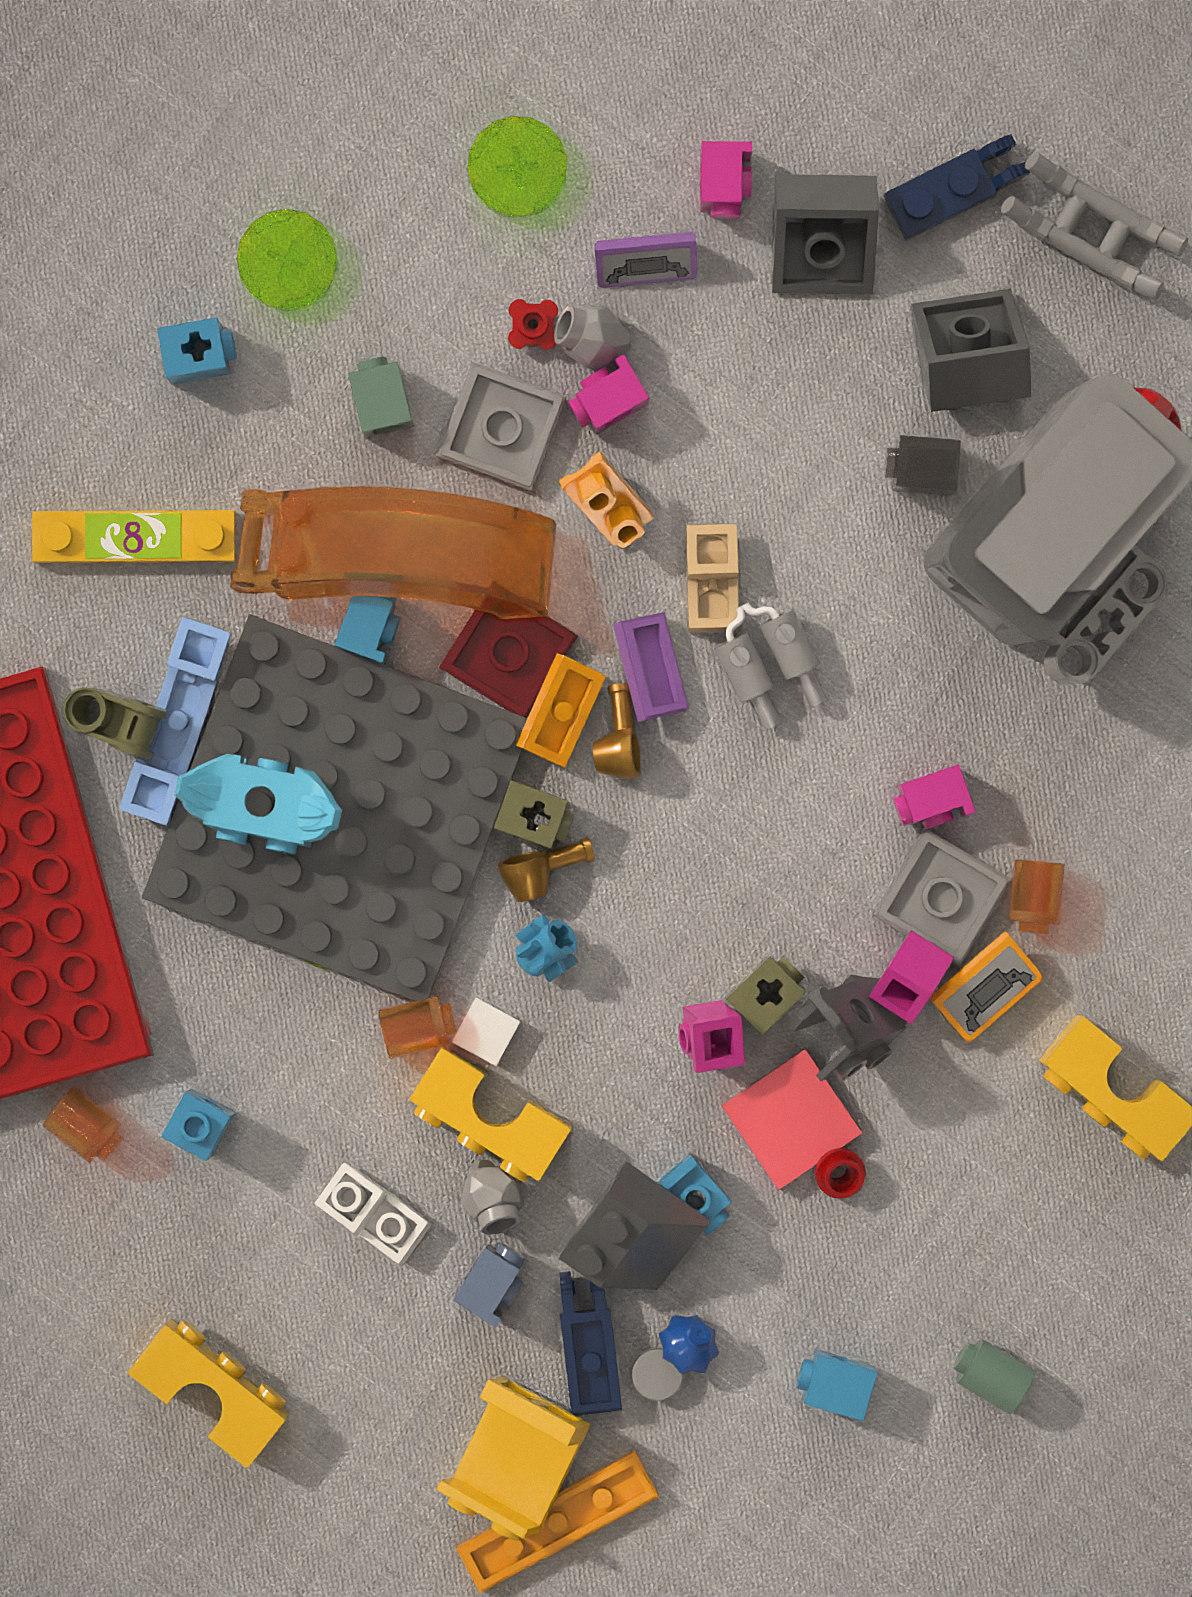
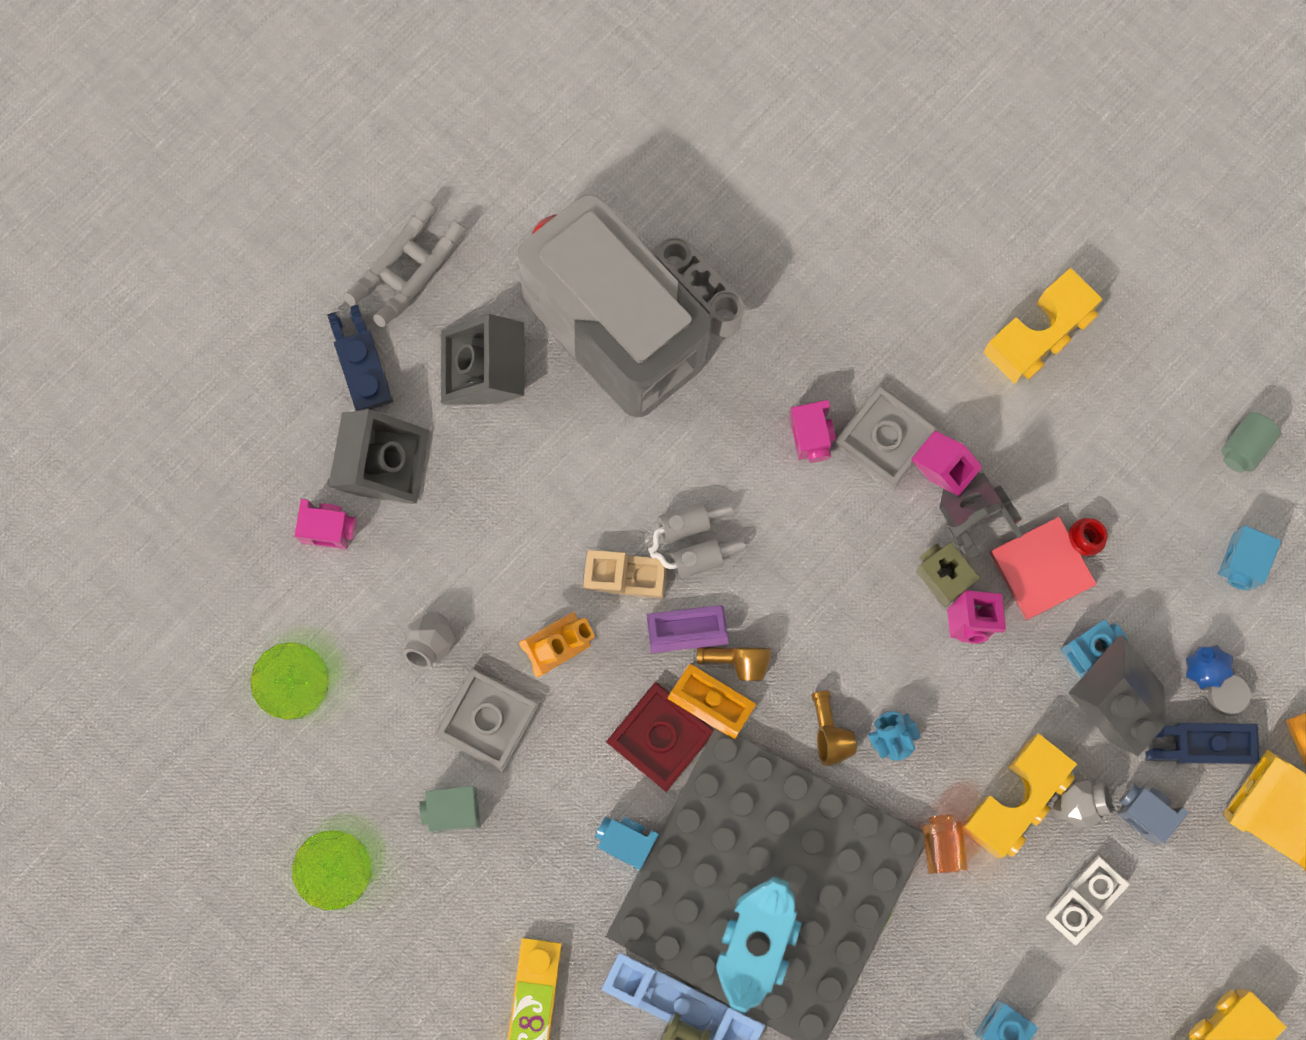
camera: 80 degrees left, 10 degrees down
(180, 338) = (379, 963): dark azure brick -> none
(398, 547) = (570, 811): clear orange windscreen -> none
(486, 1031) = (952, 792): white tile -> none
(522, 796) = (794, 749): olive brick -> none
(523, 313) = (404, 692): red plate -> none
(609, 397) = (476, 633): dark pink brick -> none
(646, 259) = (376, 592): slope -> none
(923, 465) = (563, 406): clear smoke brick -> none
(986, 987) = (959, 410): slope -> none
(1036, 895) = (893, 366): clear orange brick -> none

